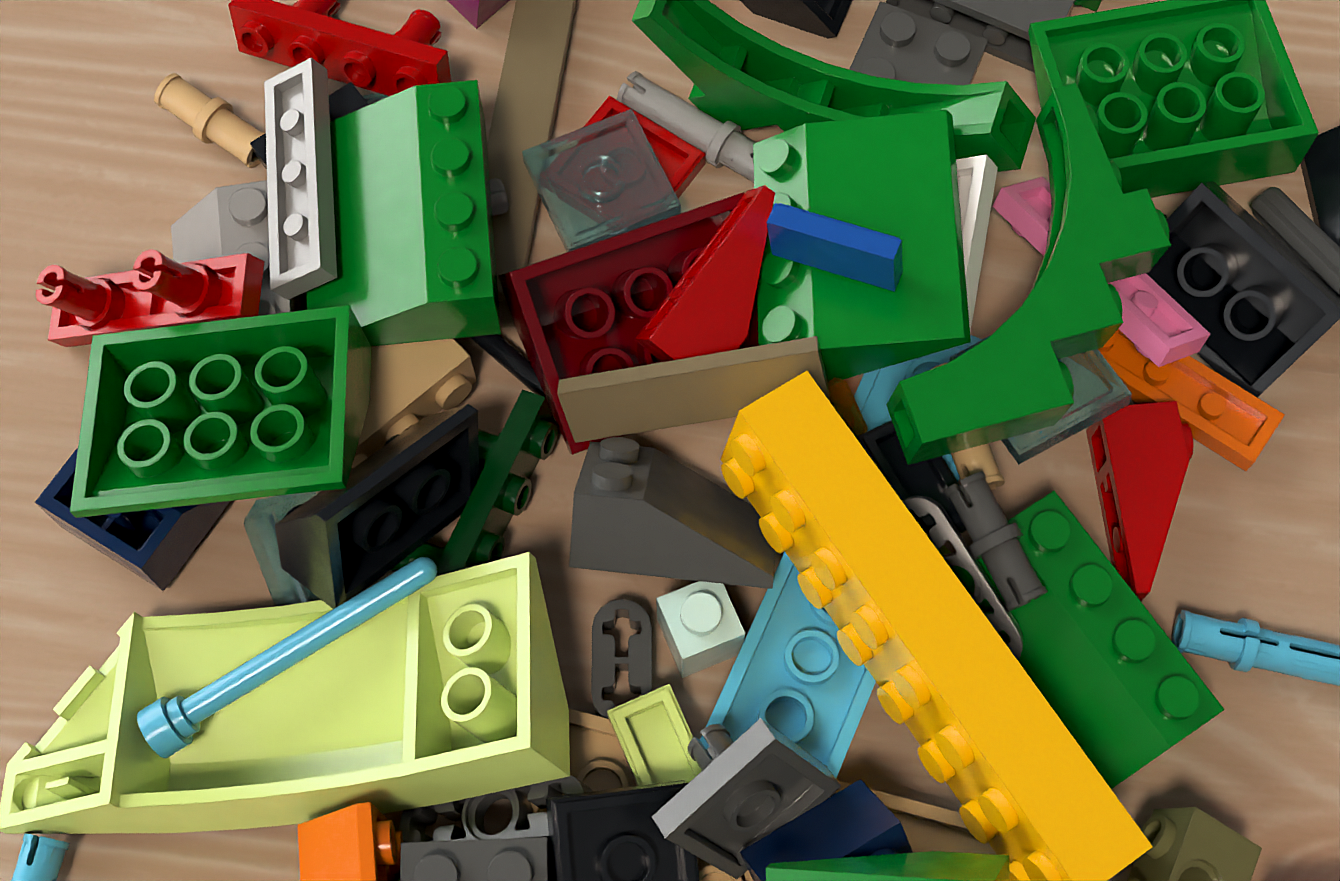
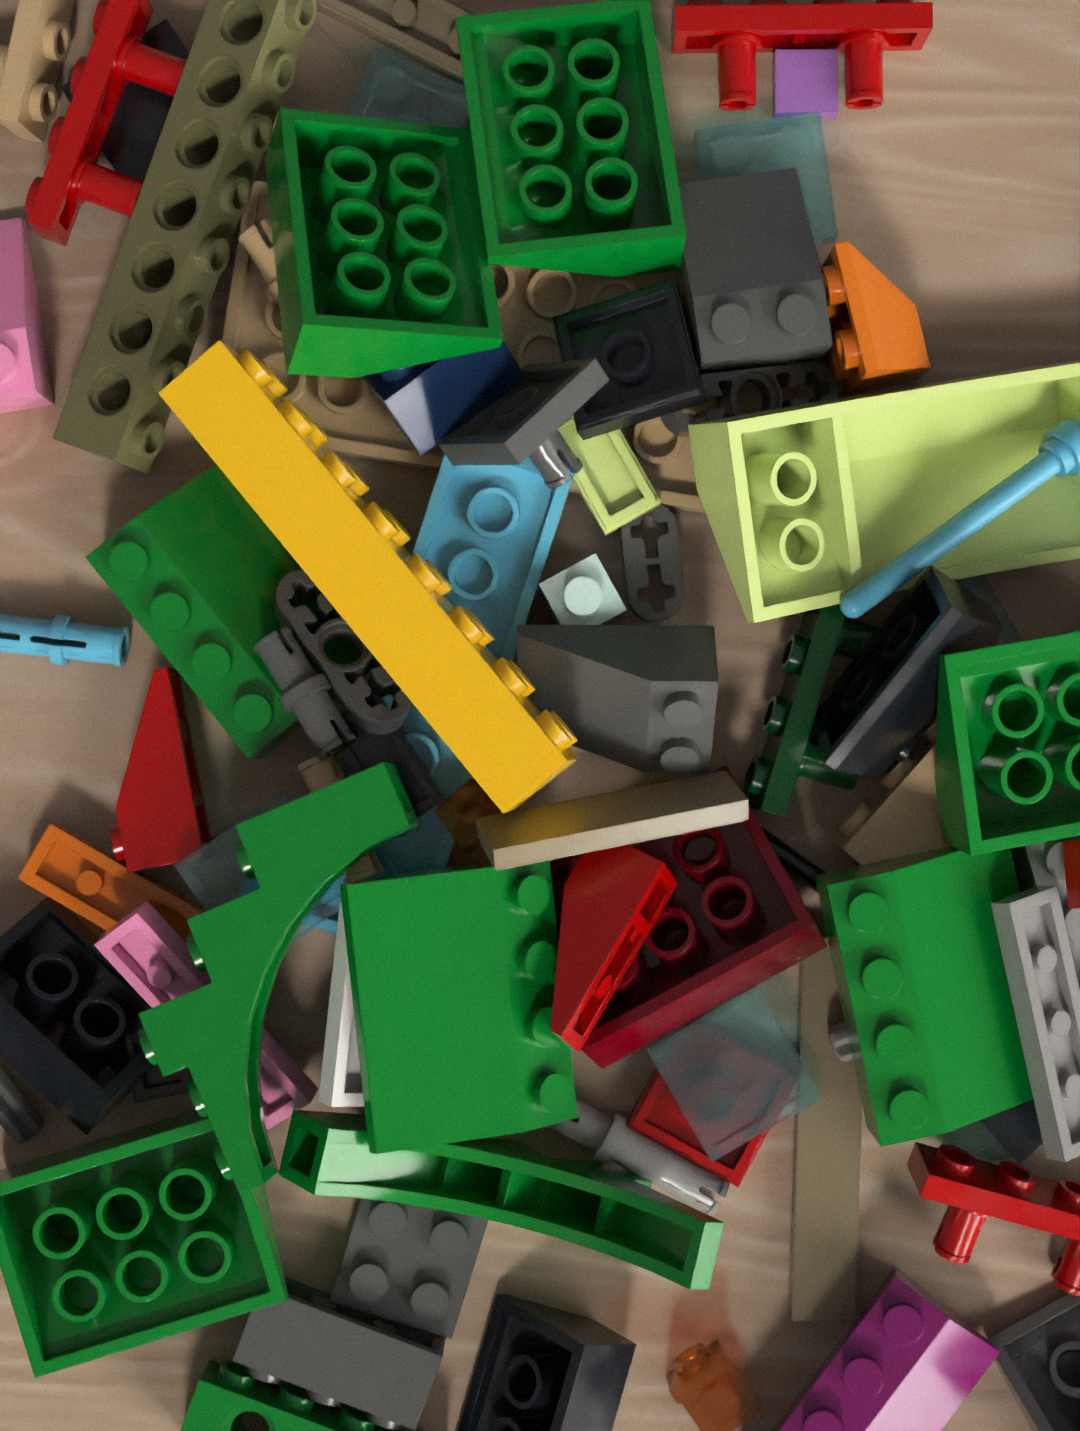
camera: 175 degrees right, 20 degrees up
(835, 246) = (484, 968): blue tile -> none

